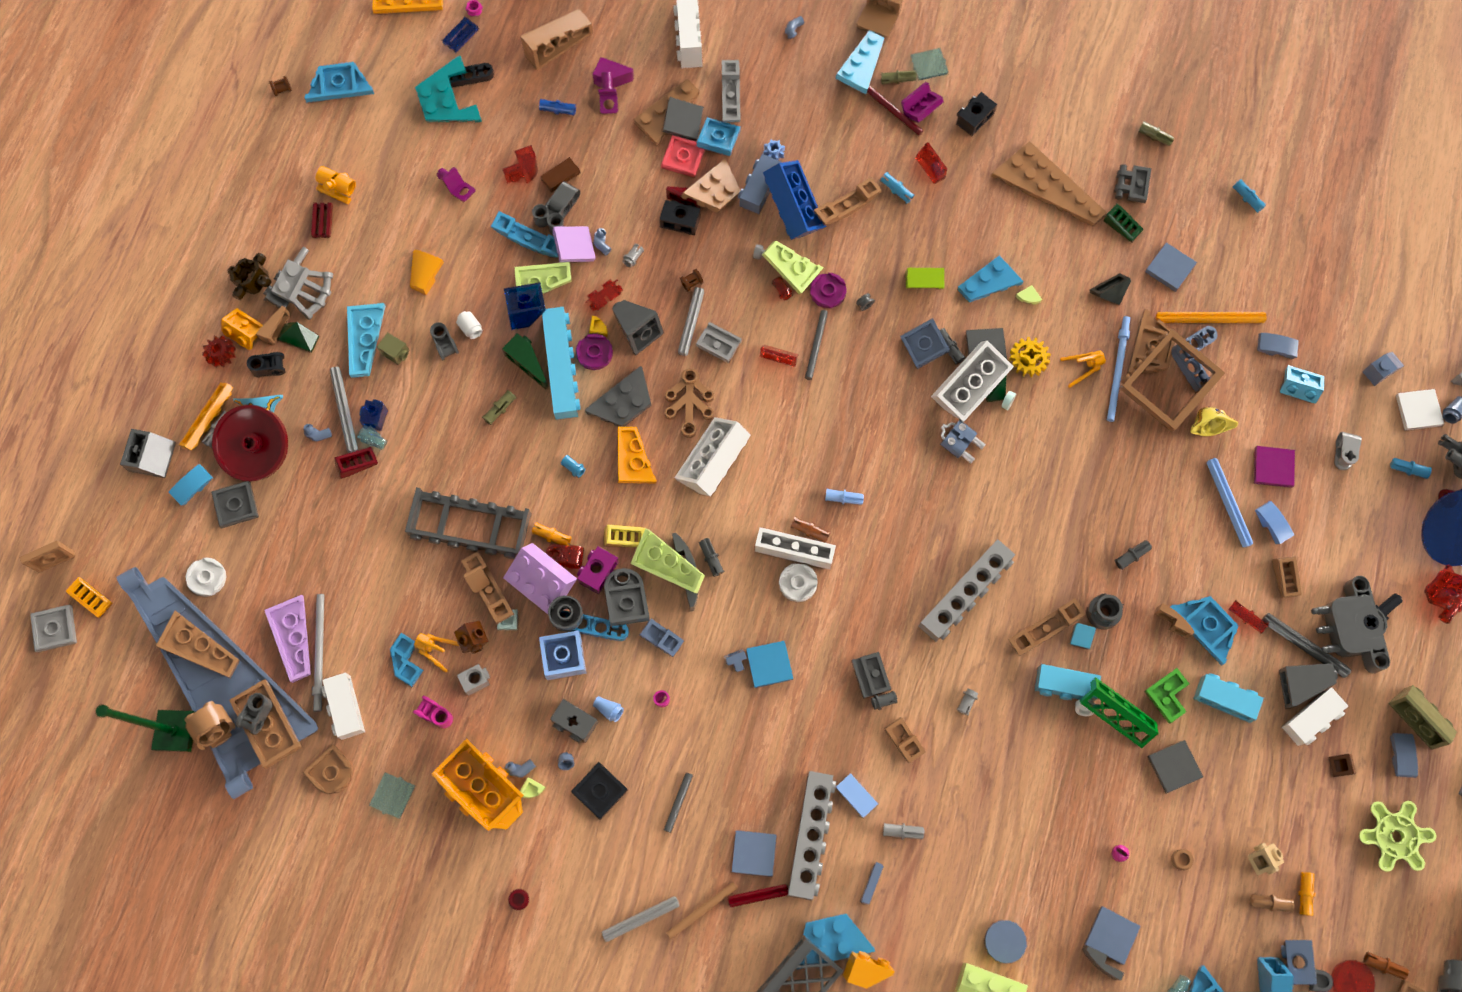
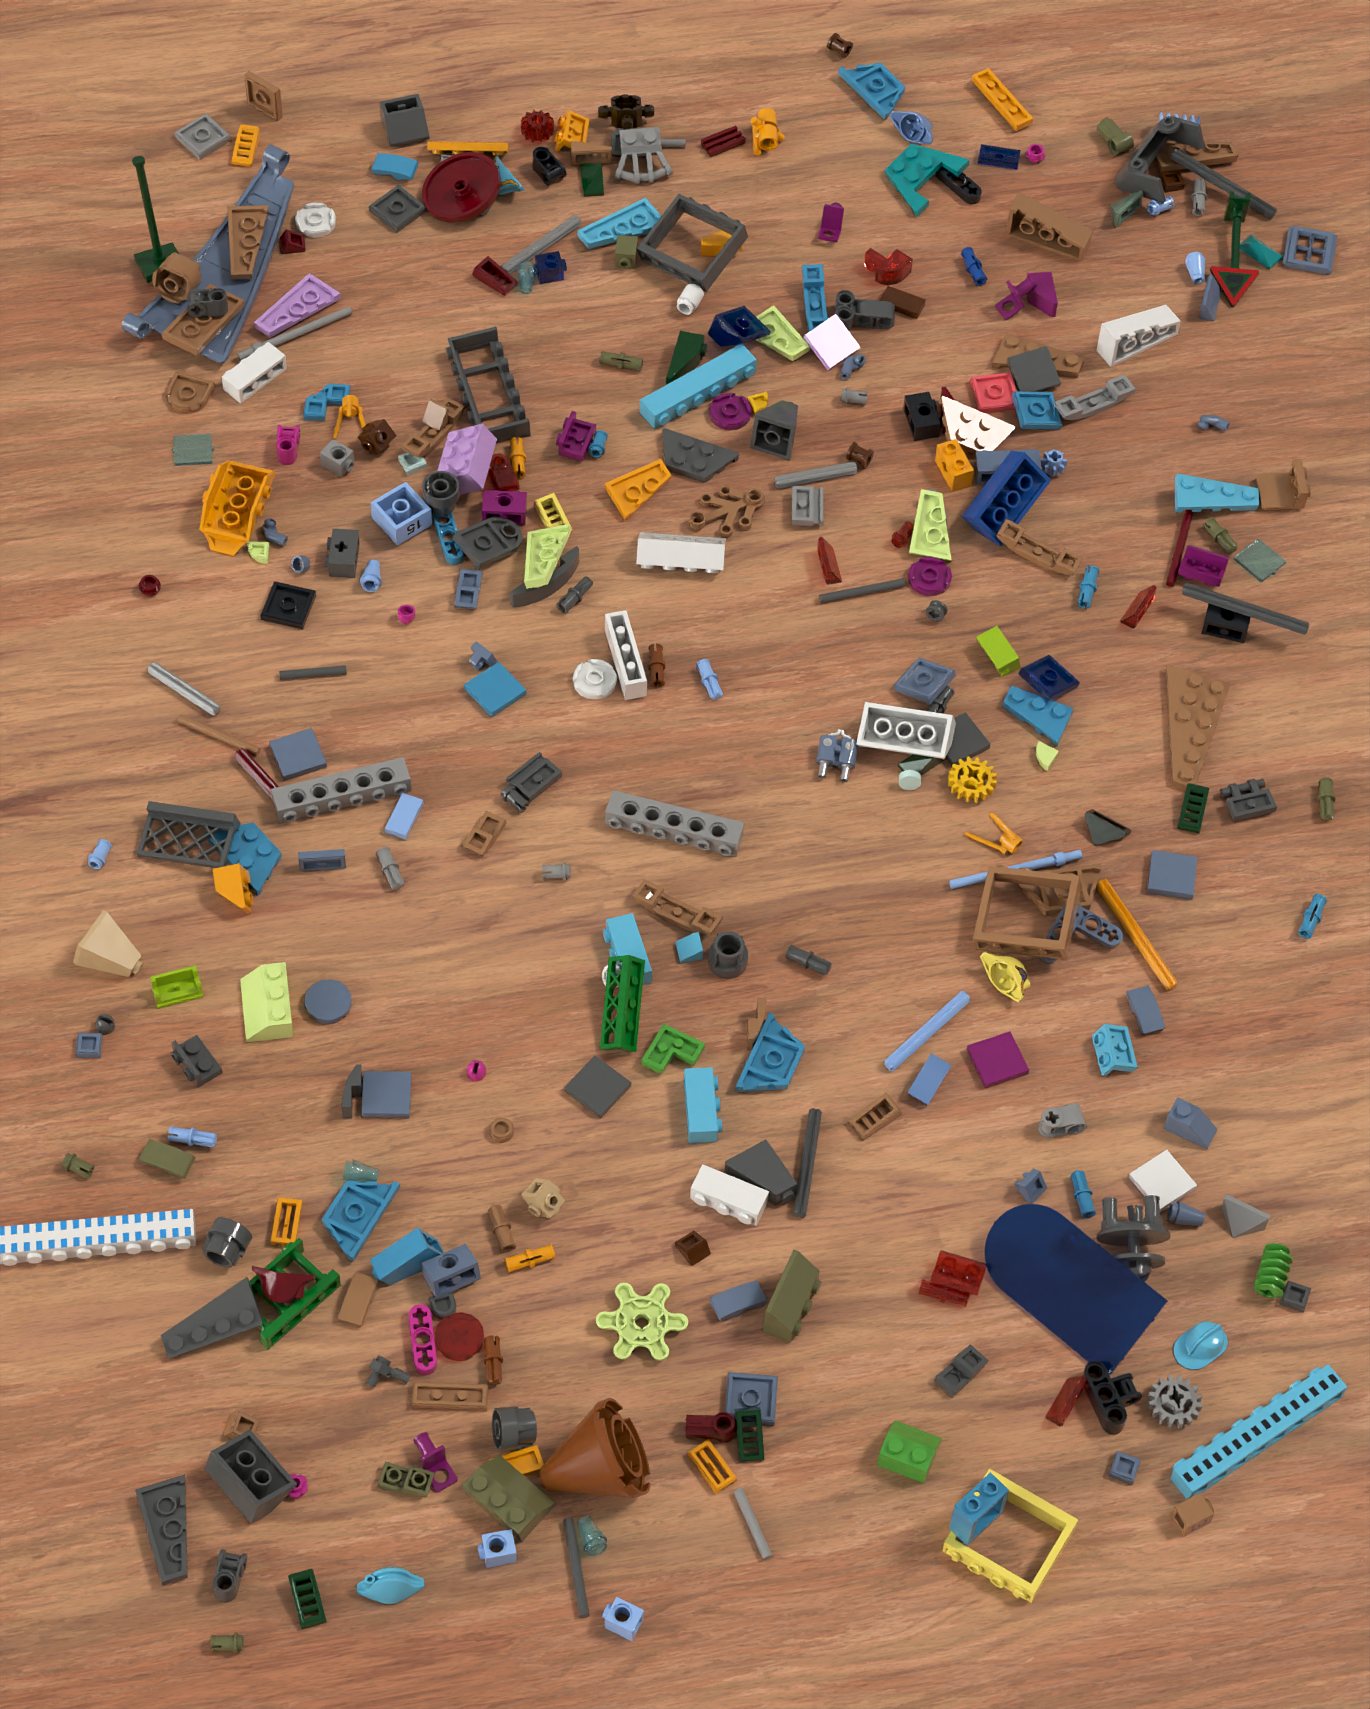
camera: 60 degrees right, 15 degrees down
(218, 608) = (292, 242): none -> dark red slope
(316, 435) = (502, 235): sand blue arm -> none
(398, 76) = (913, 126): none -> medium blue hat
(400, 269) = (678, 269): none -> dark grey window
(444, 343) = (659, 286): dark grey piece -> none
(559, 479) = (575, 437): none -> magenta bracket
(597, 298) = (788, 386): clear red hinge -> none
(739, 219) = (954, 465): none -> light orange brick
(966, 257) = (1049, 678): none -> clear blue tile
(981, 94) = (1245, 608): none -> dark grey axle
(1248, 617) = (805, 1093): clear red pin -> none
(1347, 625) = (859, 1187): piece -> none
(1394, 502) = (1031, 1185): none -> sand blue tile

